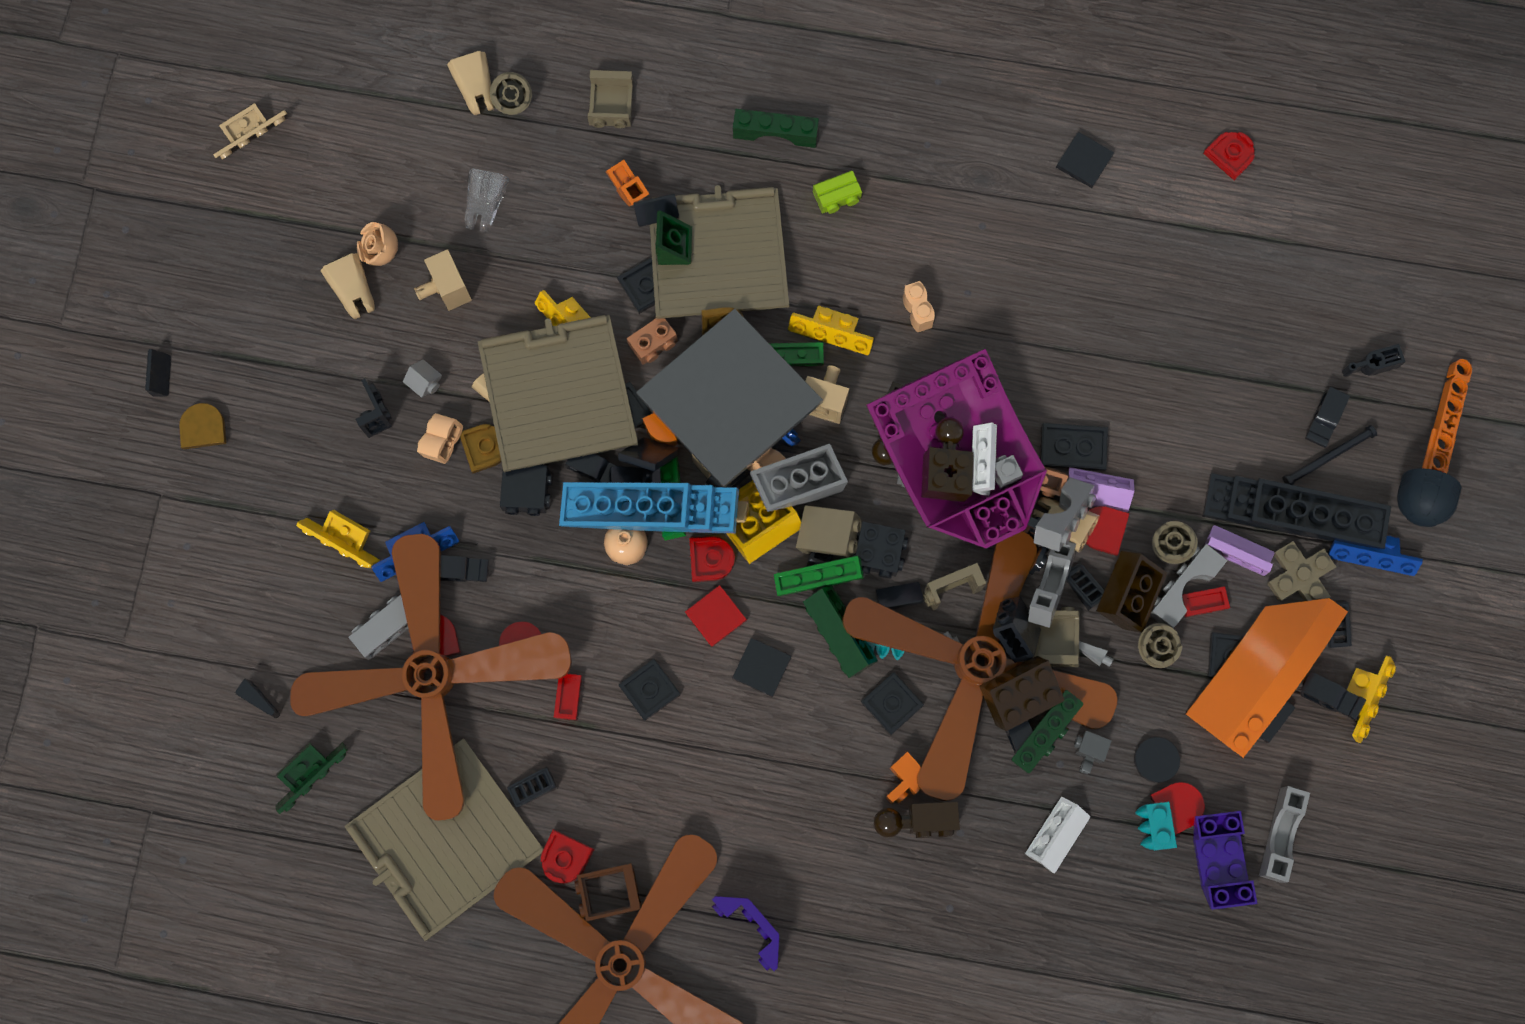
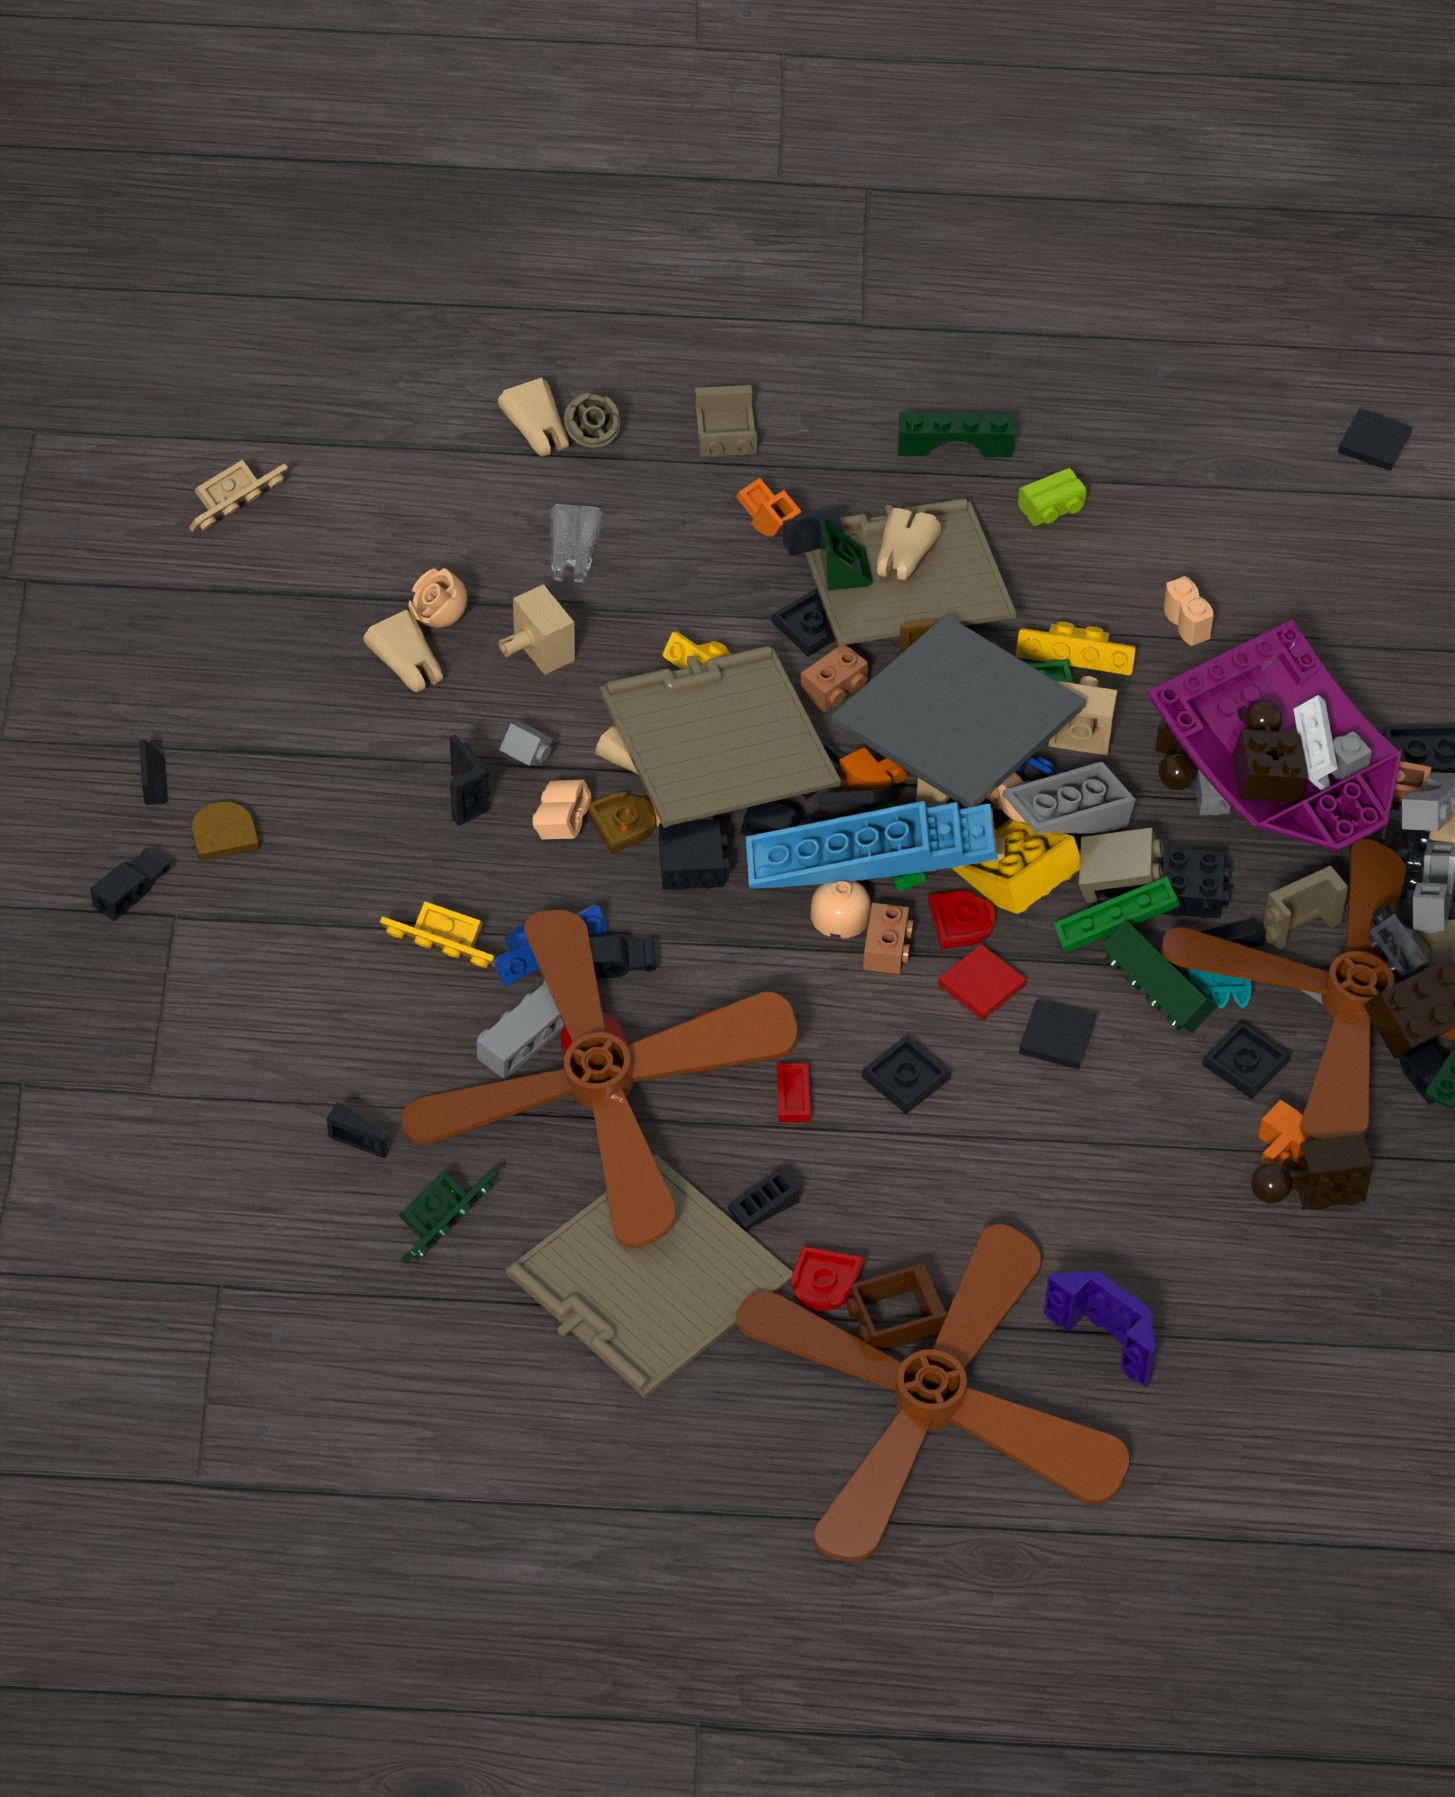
camera: 10 degrees left, 25 degrees down
(128, 467) = (127, 884): none -> black piece
(653, 574) = (886, 938): none -> nougat brick
(719, 231) = (906, 542): none -> tan piece

